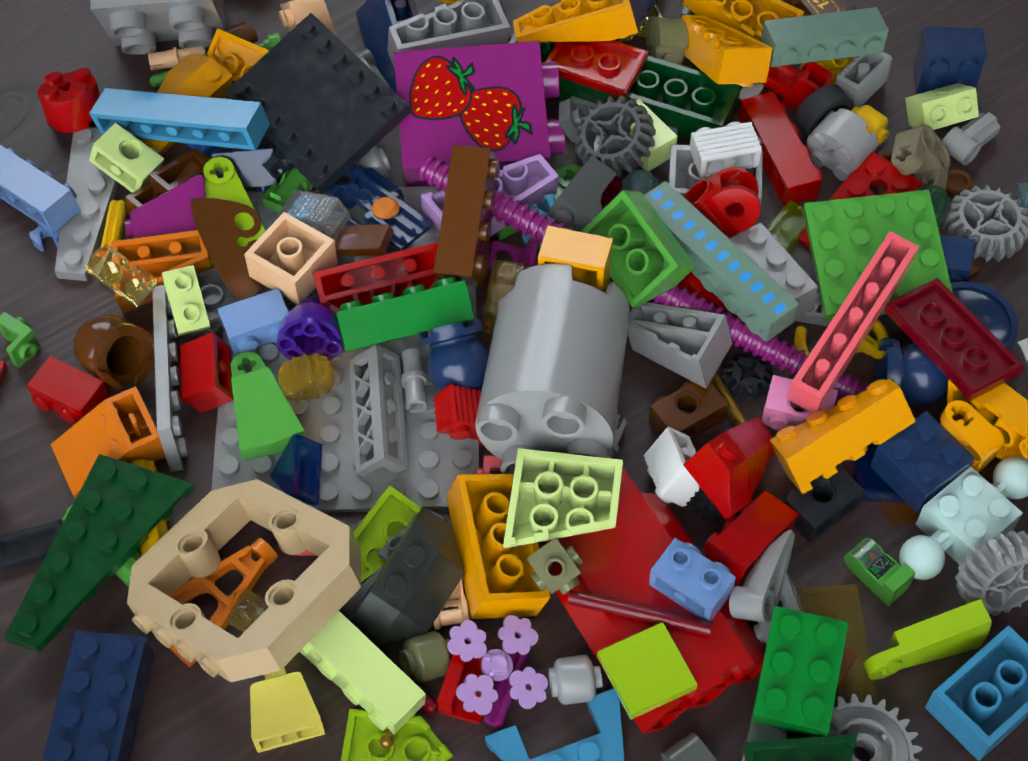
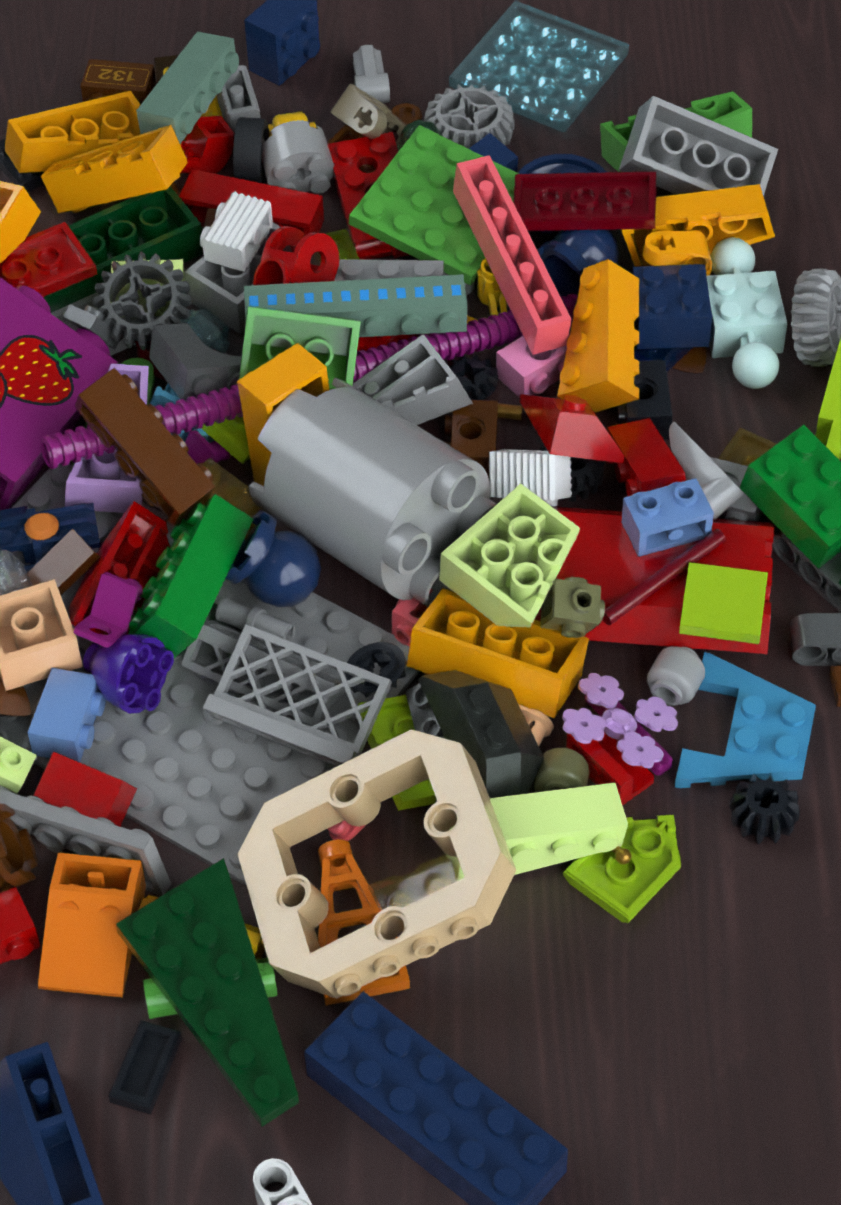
camera: 55 degrees left, 5 degrees down
(261, 409) = (172, 765): bright green piece -> none
(282, 711) = (528, 926): light yellow torso -> none
(300, 469) = (269, 771): clear blue slope -> none
(306, 377) = (180, 702): clear yellow gear -> none
(331, 288) = (110, 609): none -> magenta bracket
(332, 457) = (284, 730): none -> light grey fence
(427, 467) = (387, 656): none -> black gear
(457, 412) = (338, 596): red brick -> none
(668, 38) = (56, 202): olive brick -> none
(879, 571) = (741, 404): bright green leg -> none
(942, 106) = (323, 72): yellowish green brick -> none

